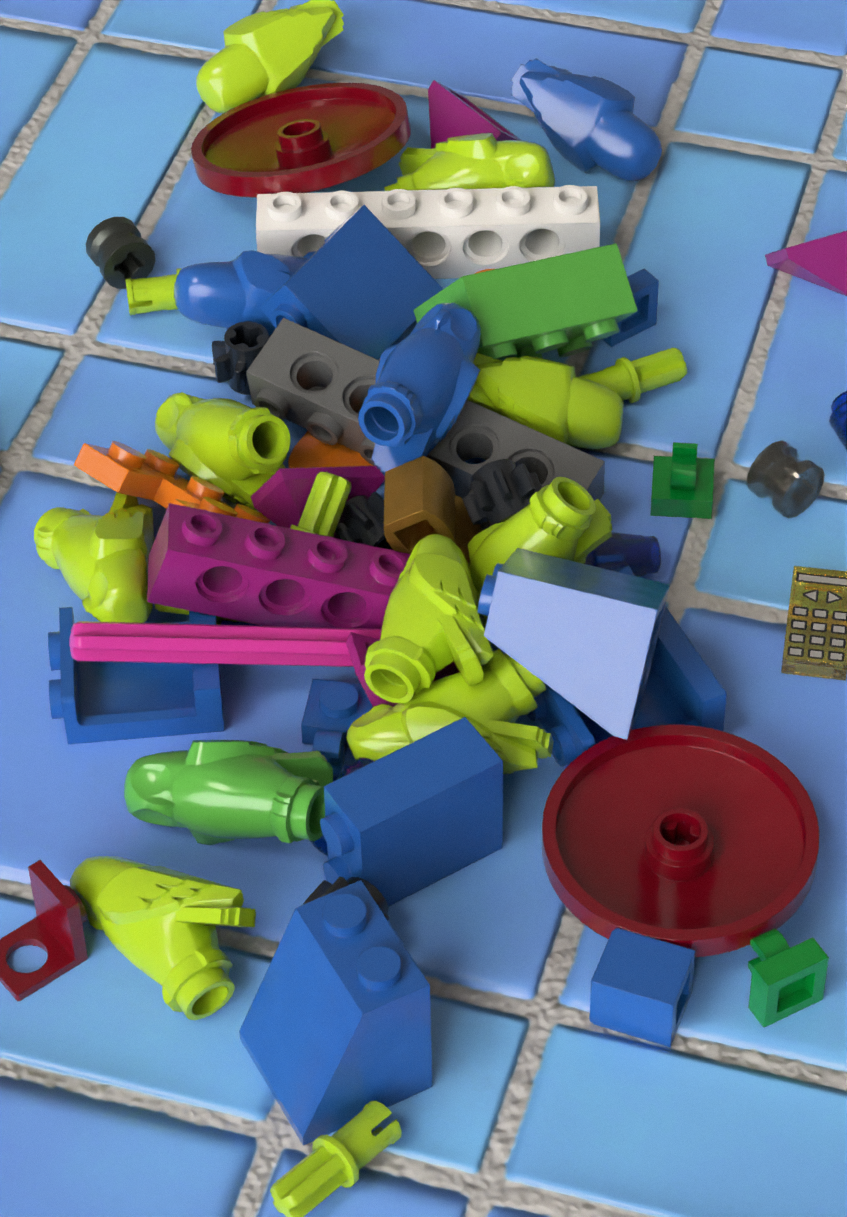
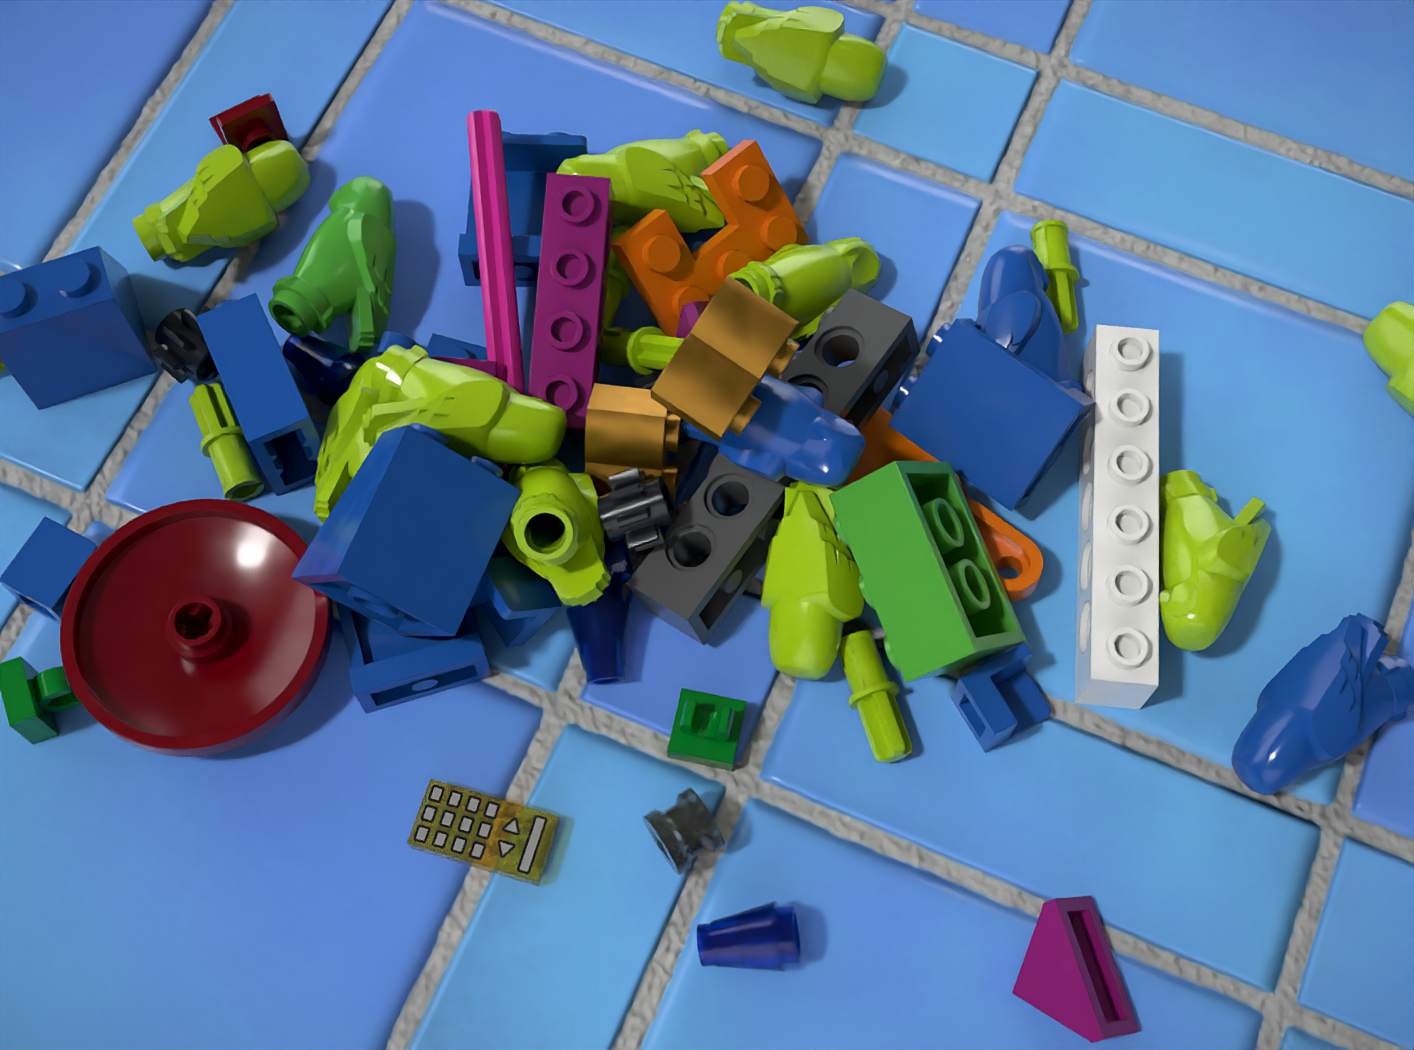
camera: 95 degrees right, 20 degrees up
(119, 251) = (1110, 221): pearl dark grey wheel -> none
(237, 353) = (931, 312): black gear -> none
(301, 139) = (1277, 395): dark red dish -> none
(395, 350) = (725, 360): none -> pearl gold brick
(455, 884) = (225, 443): none -> lime axle
(457, 116) = (1332, 583): magenta slope -> none

